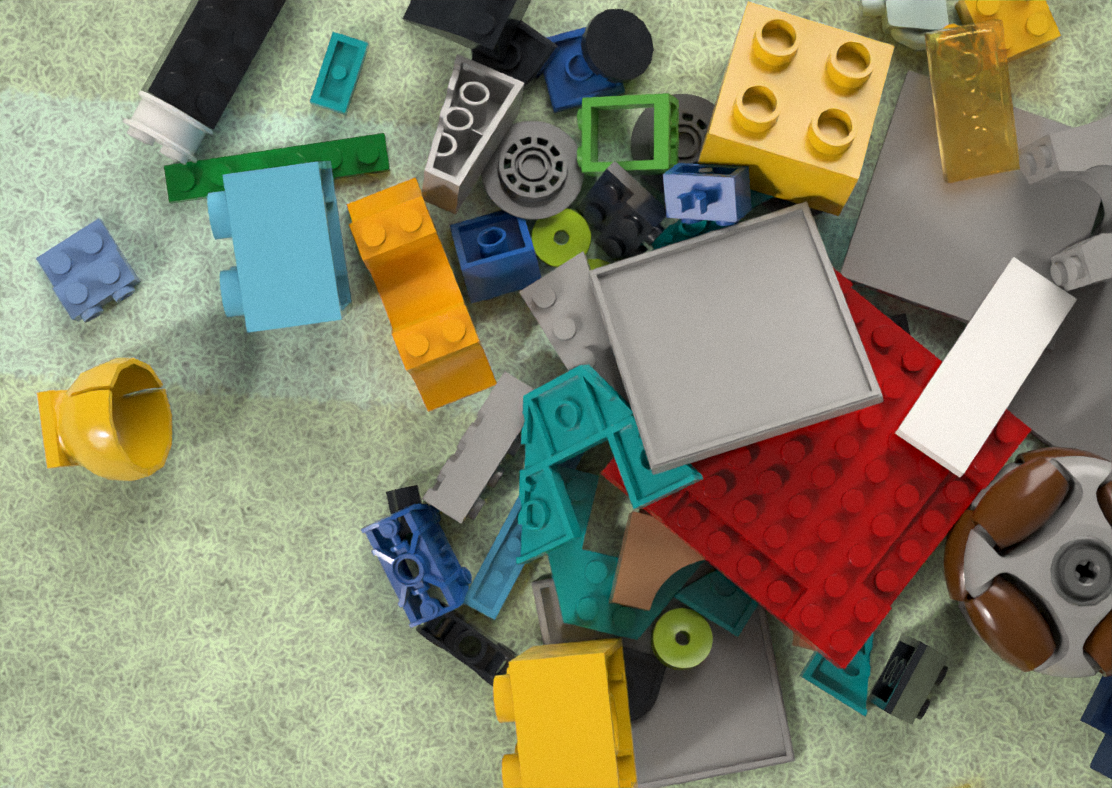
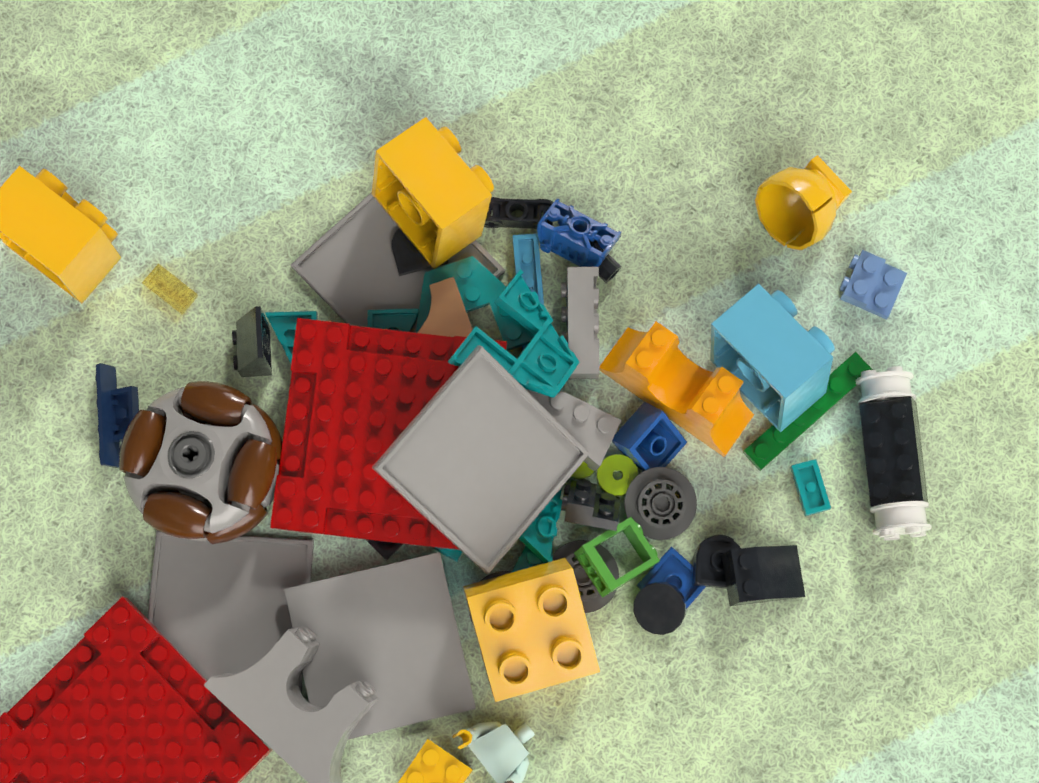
camera: 145 degrees right, 10 degrees down
(470, 128) = (713, 497): light grey wedge -> none
(697, 632) = (387, 286): lime piece -> none
(707, 193) = (550, 543): blue brick -> none
(972, 100) = (426, 706): clear yellow plate -> none
(986, 367) = (319, 547): white tile -> none

